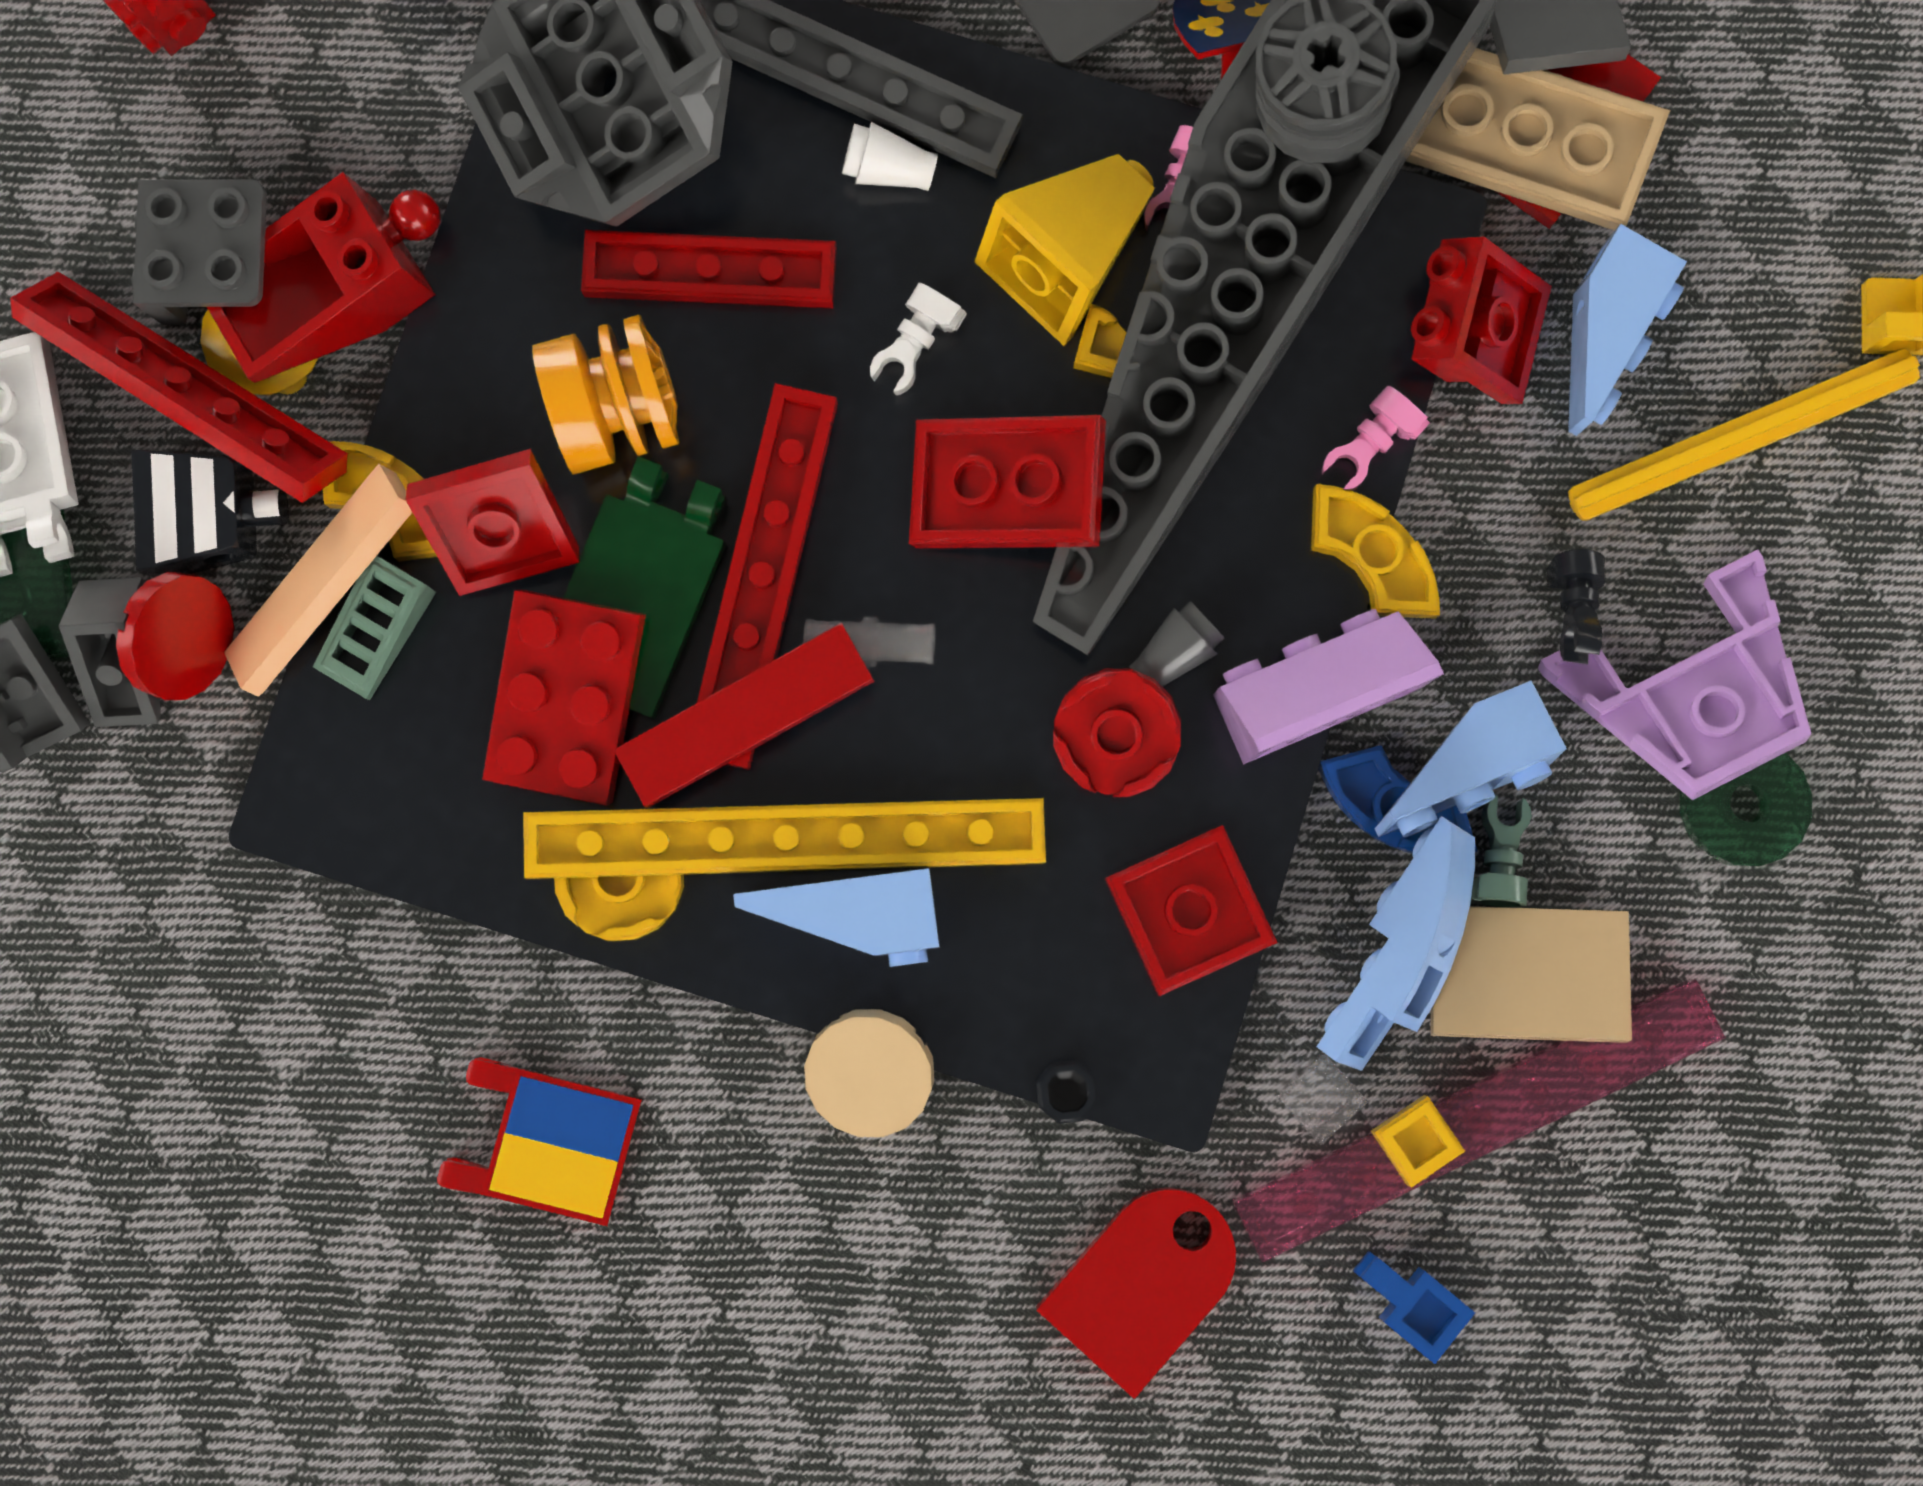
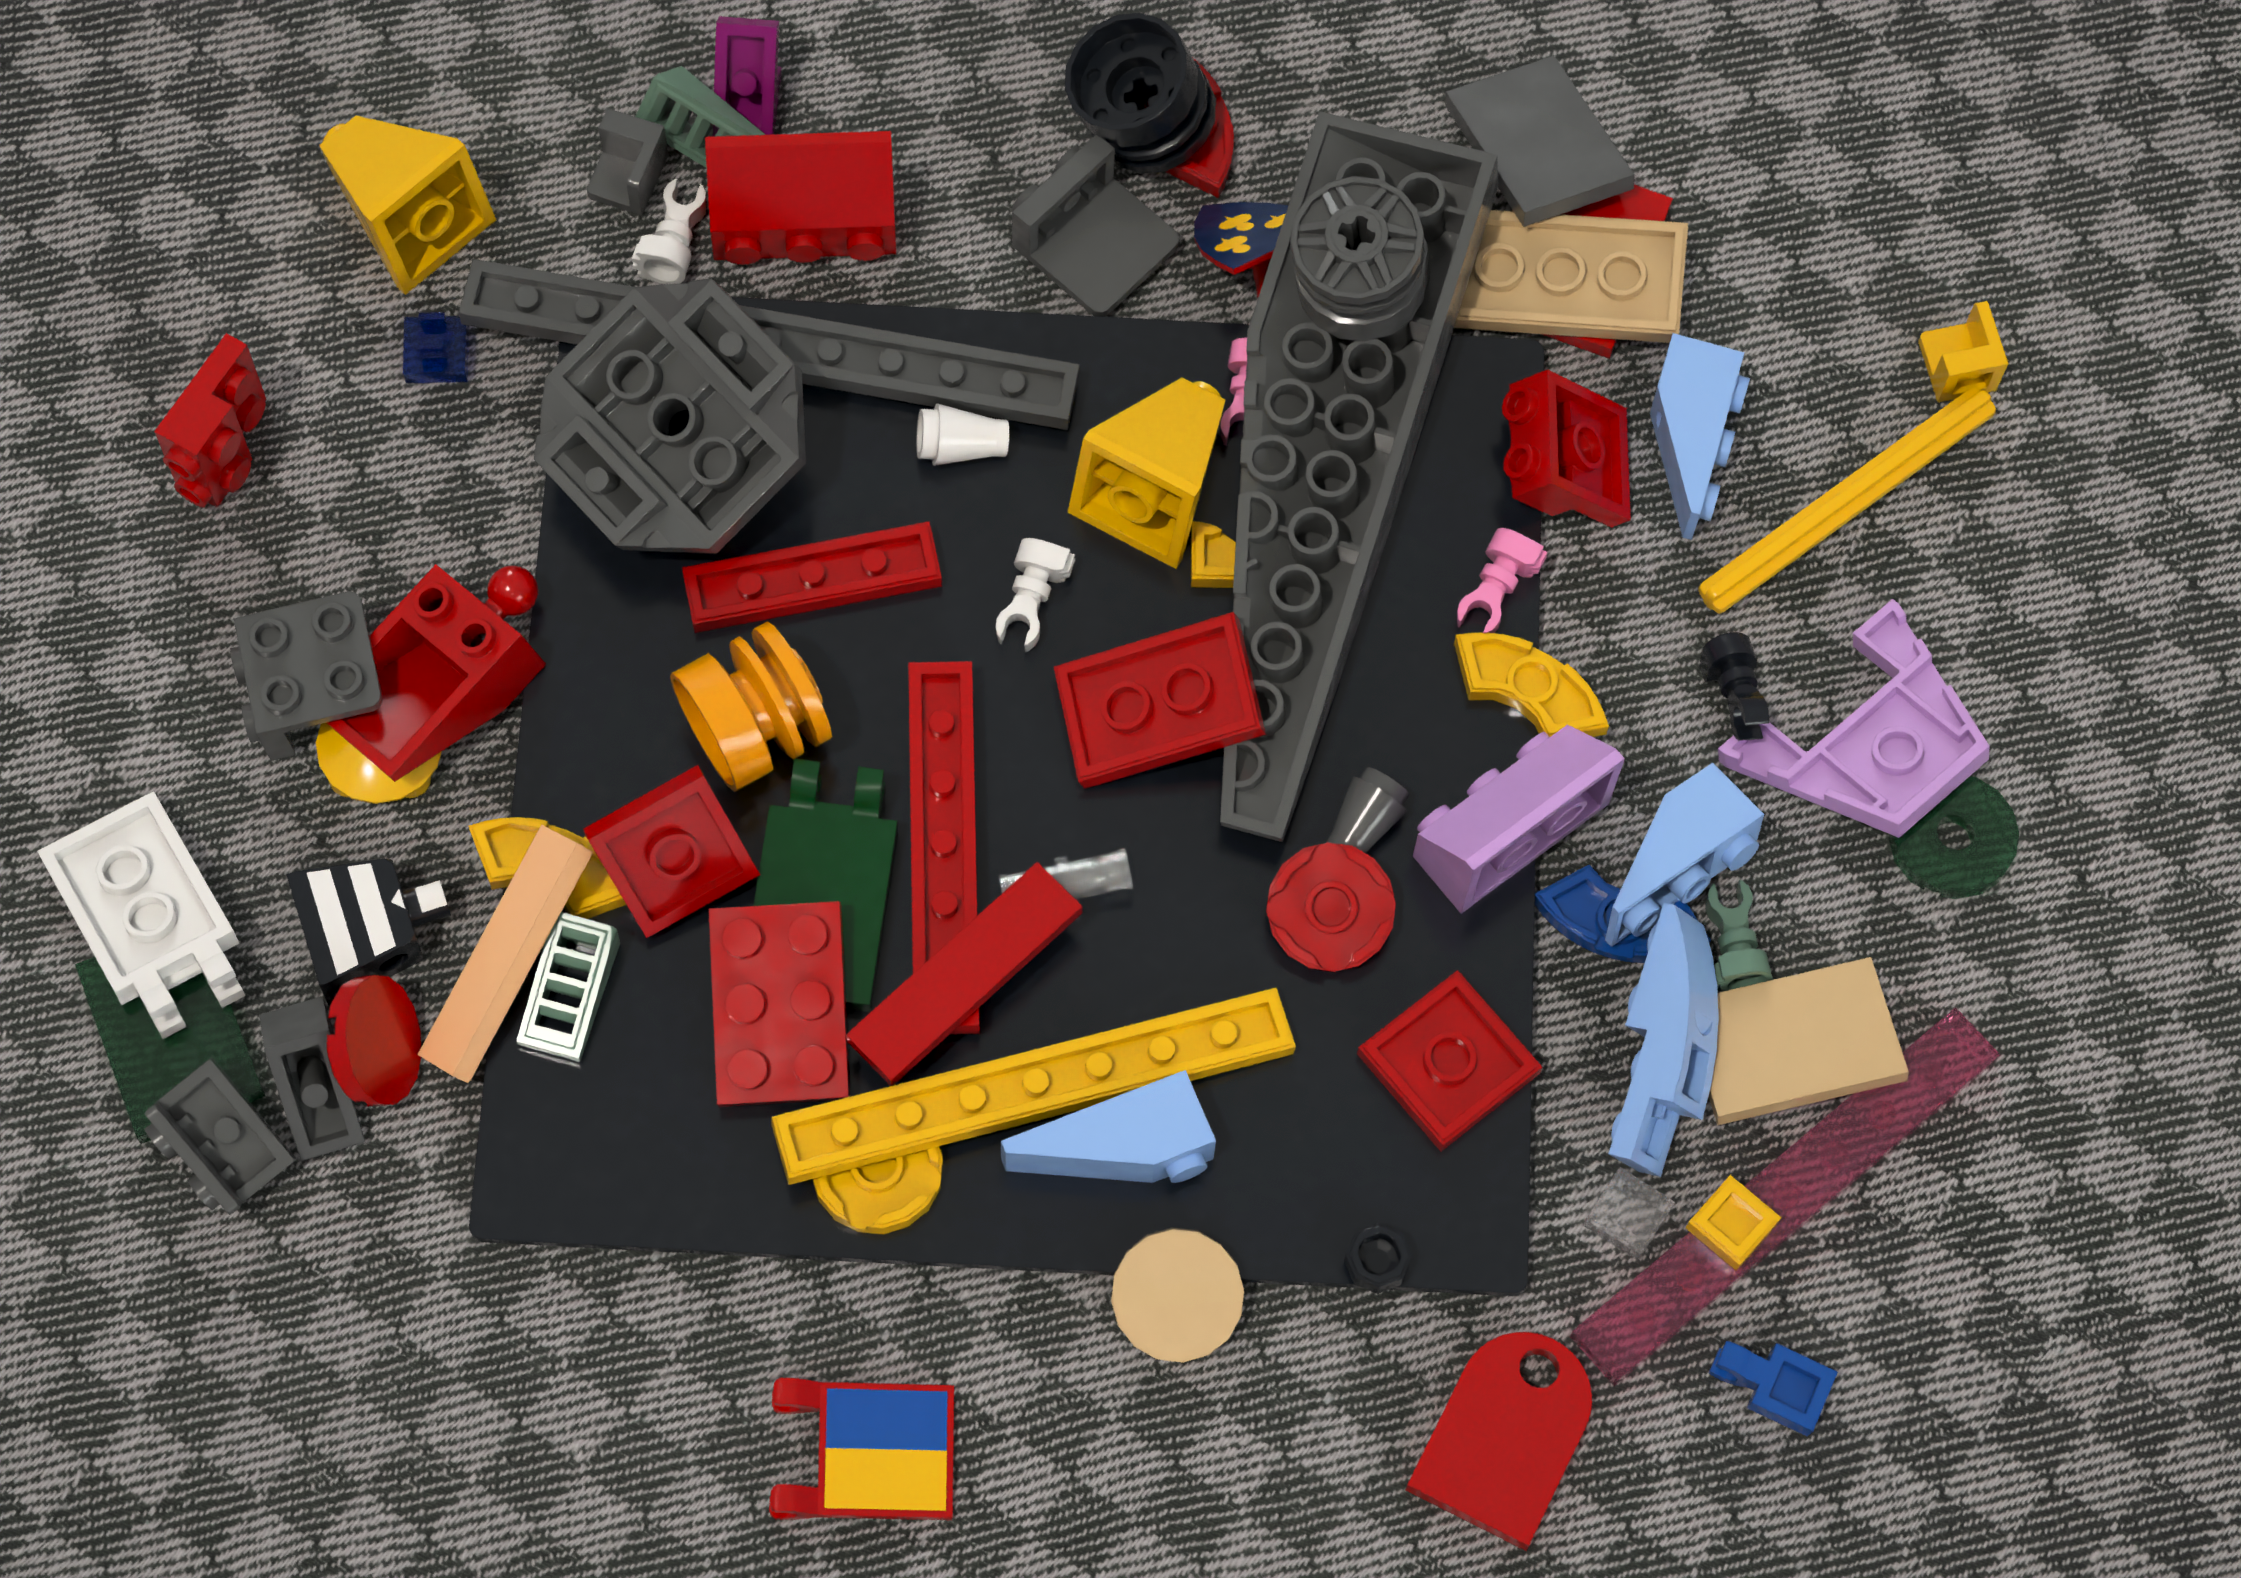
camera: 20 degrees left, 15 degrees down
(180, 386) = (317, 804): red plate -> none

